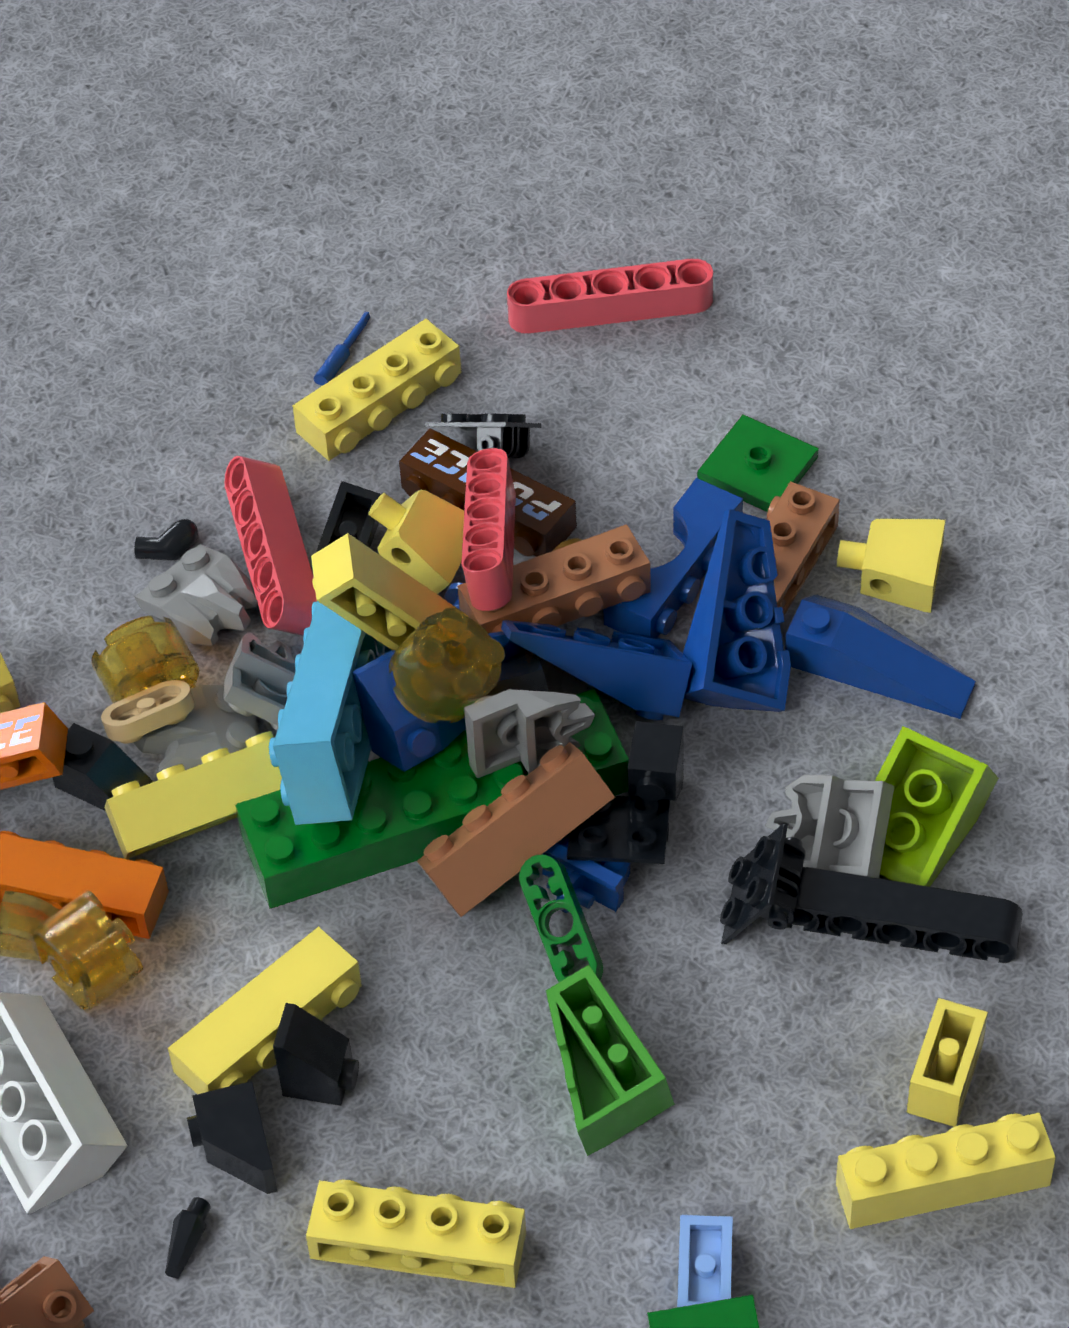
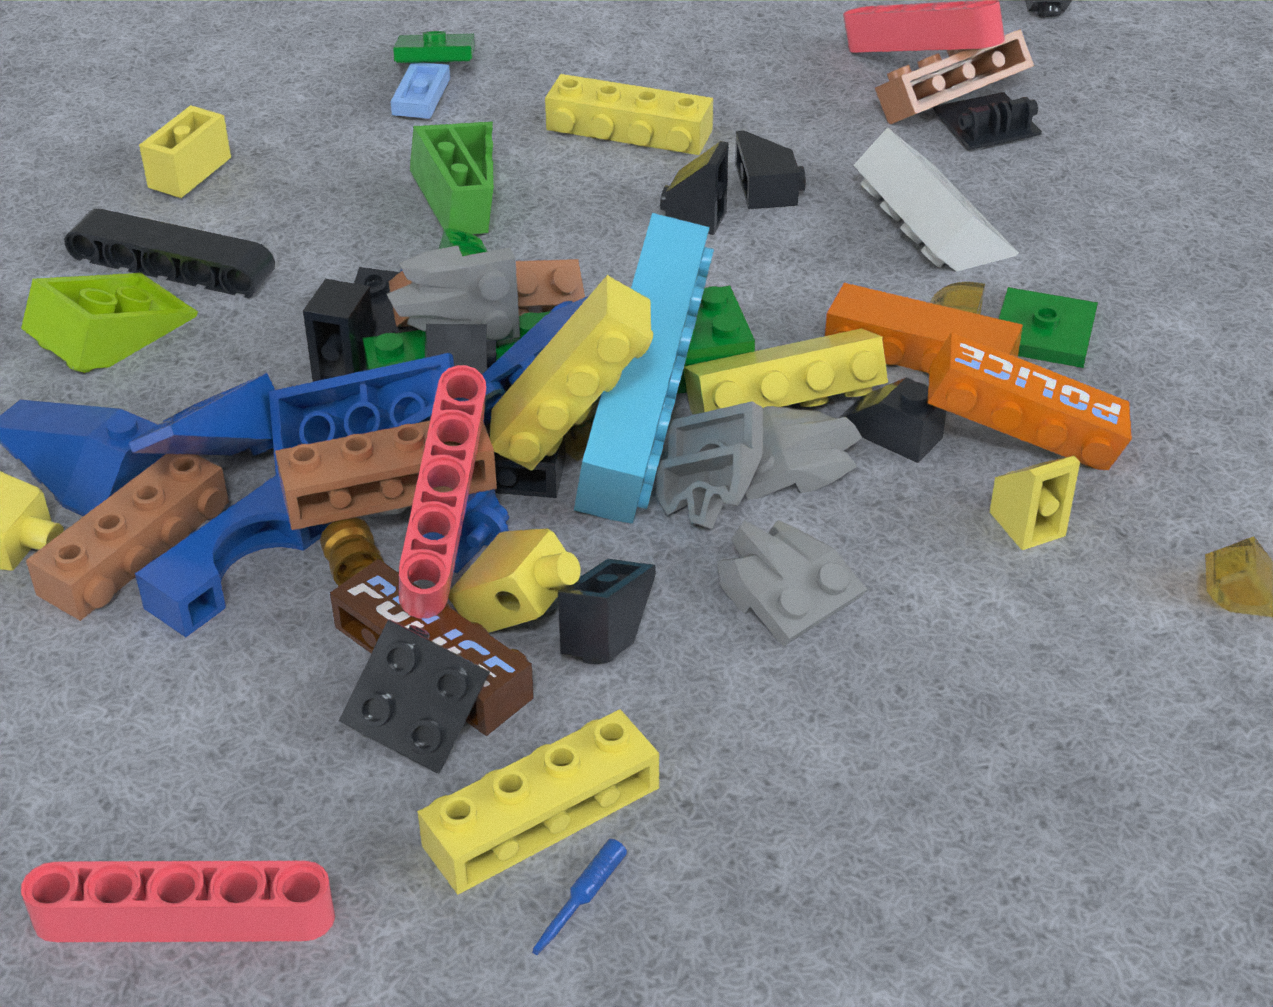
camera: 175 degrees left, 10 degrees down
(86, 951) = (898, 257): clear yellow brick -> none
(143, 656) = (848, 479): clear yellow brick -> none
(147, 711) = (840, 419): tan plate -> none
(170, 544) = (830, 647): black arm -> none
(185, 1234) = (804, 139): black bar -> none
(241, 1032) = (758, 225): light yellow brick -> none
(271, 544) = (701, 613): coral beam -> none
(445, 666) = (523, 303): clear yellow brick -> none
(757, 462) = (91, 665): green plate -> none
(764, 884) = (282, 259): black hinge -> none
(838, 822) = (184, 295): light grey plate -> none
(944, 1169) = (249, 103): light yellow brick -> none

